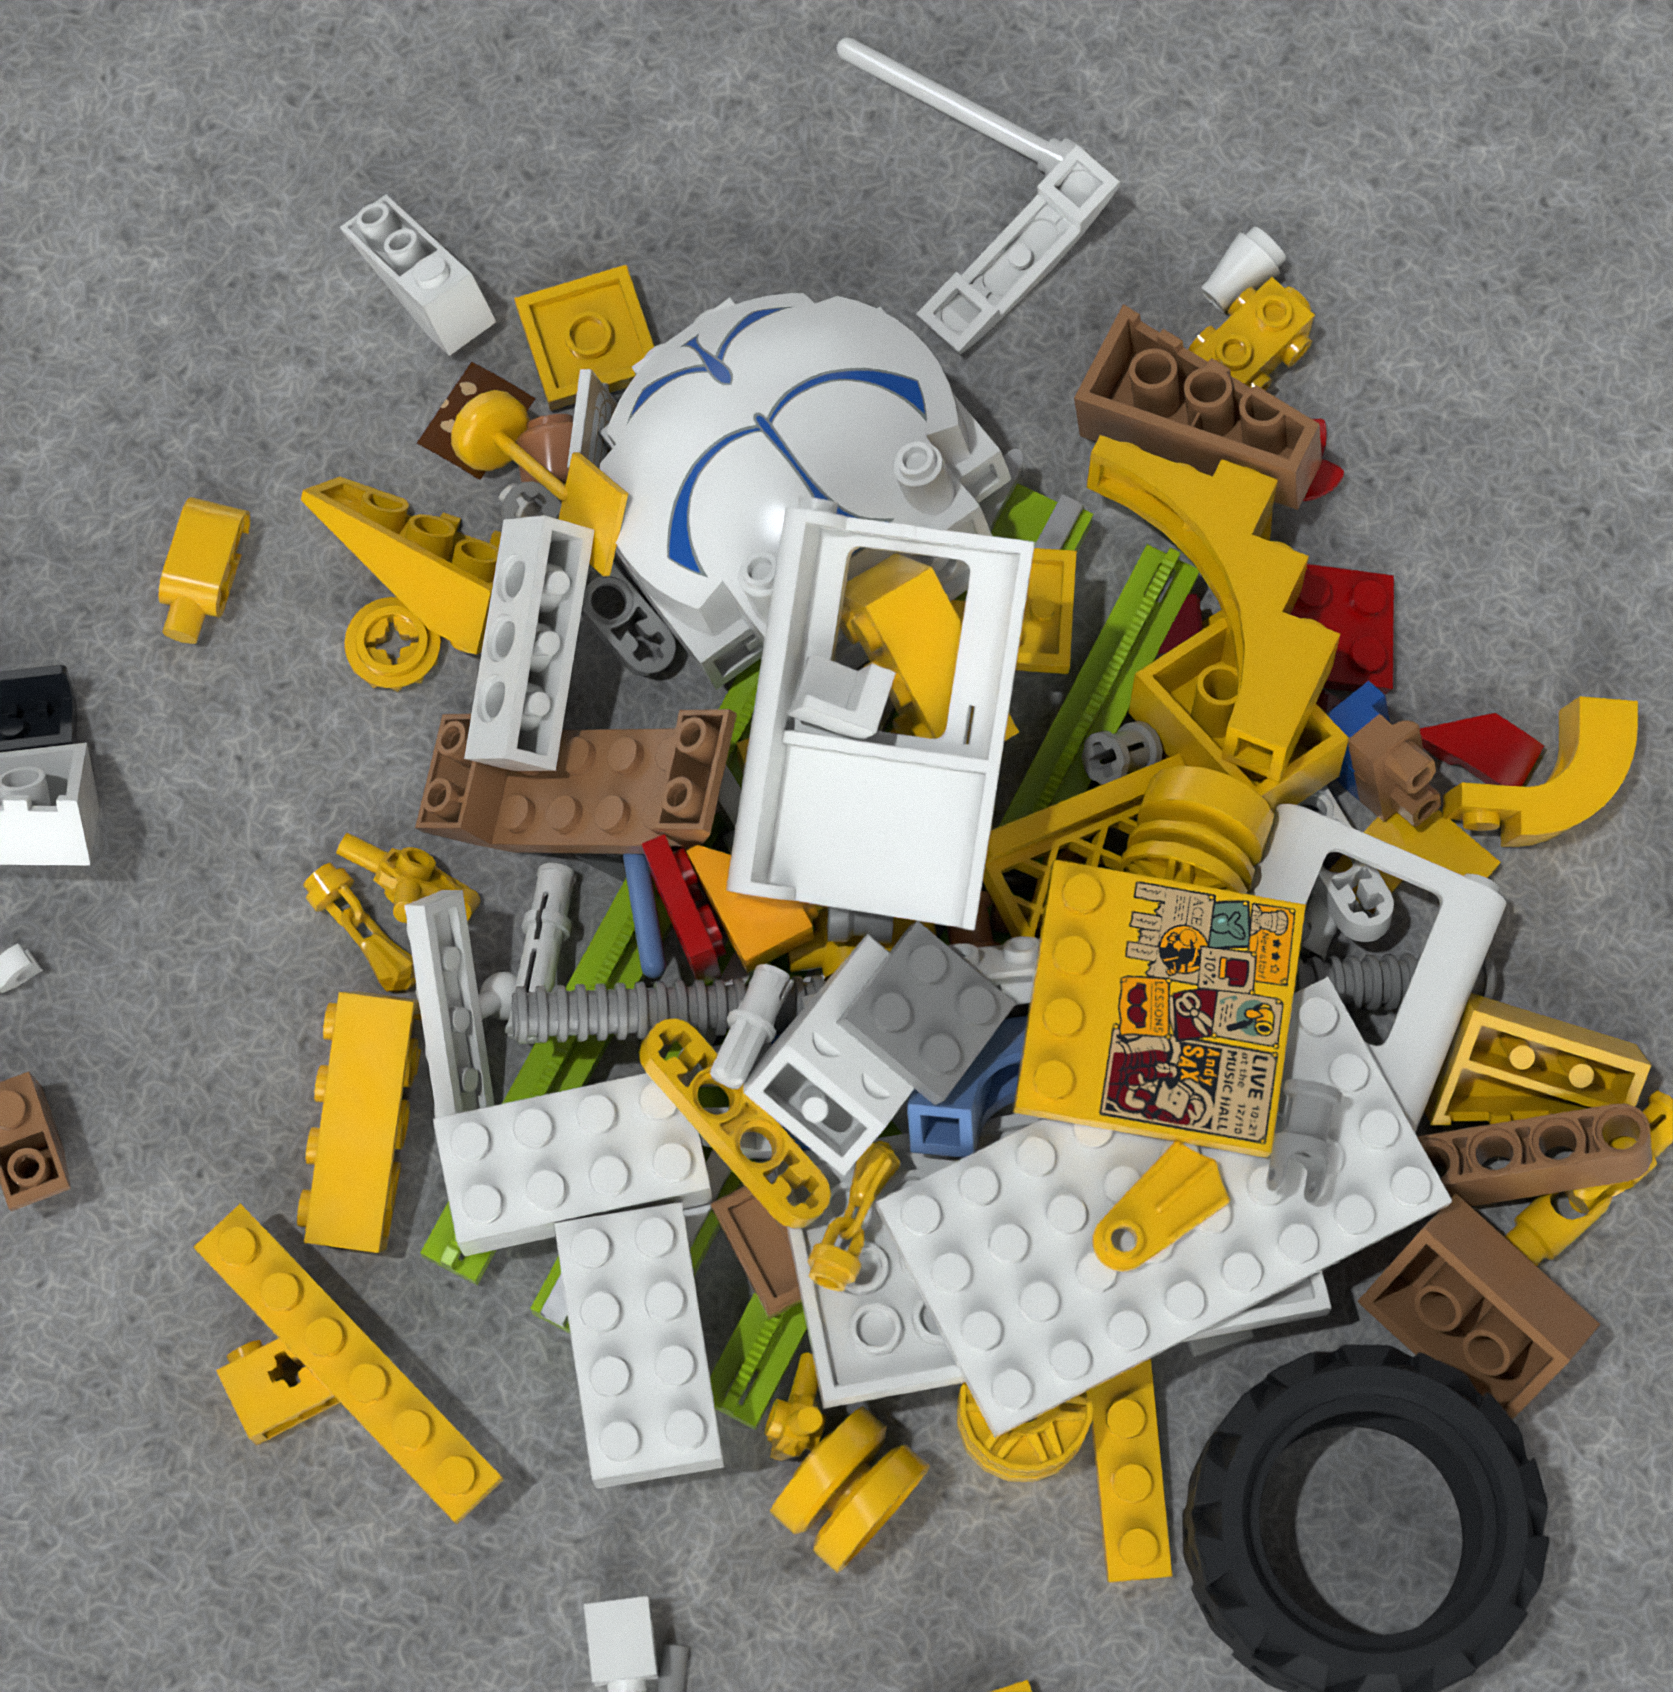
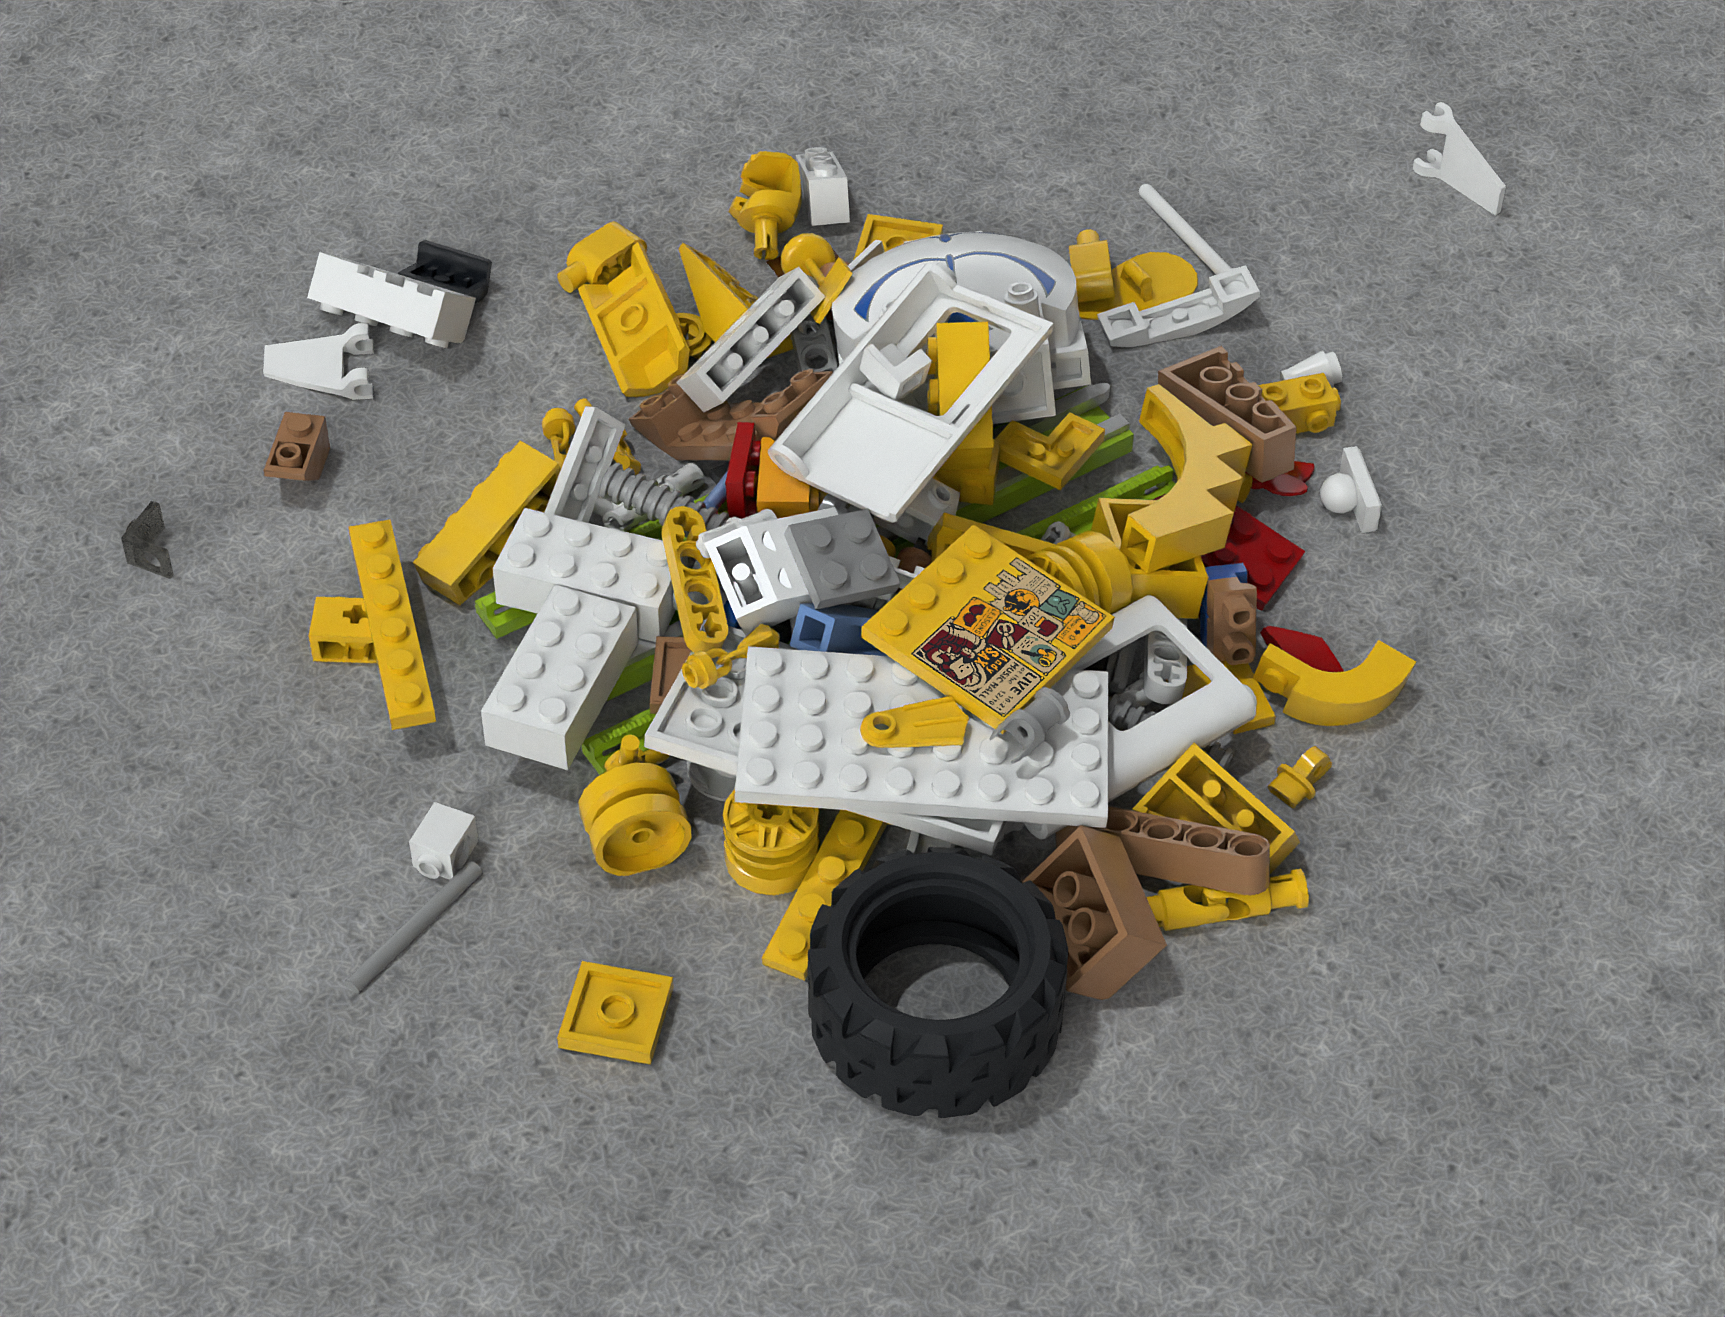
camera: 30 degrees right, 25 degrees down
(329, 667) = (637, 328): none -> yellow piece
(385, 352) = (774, 199): none -> yellow piece
(864, 236) = (1091, 267): none -> yellow piece
(933, 225) = (1147, 281): none -> yellow shield
(1402, 445) = (1353, 491): none -> white tile
(1576, 956) = (1297, 781): none -> yellow piece

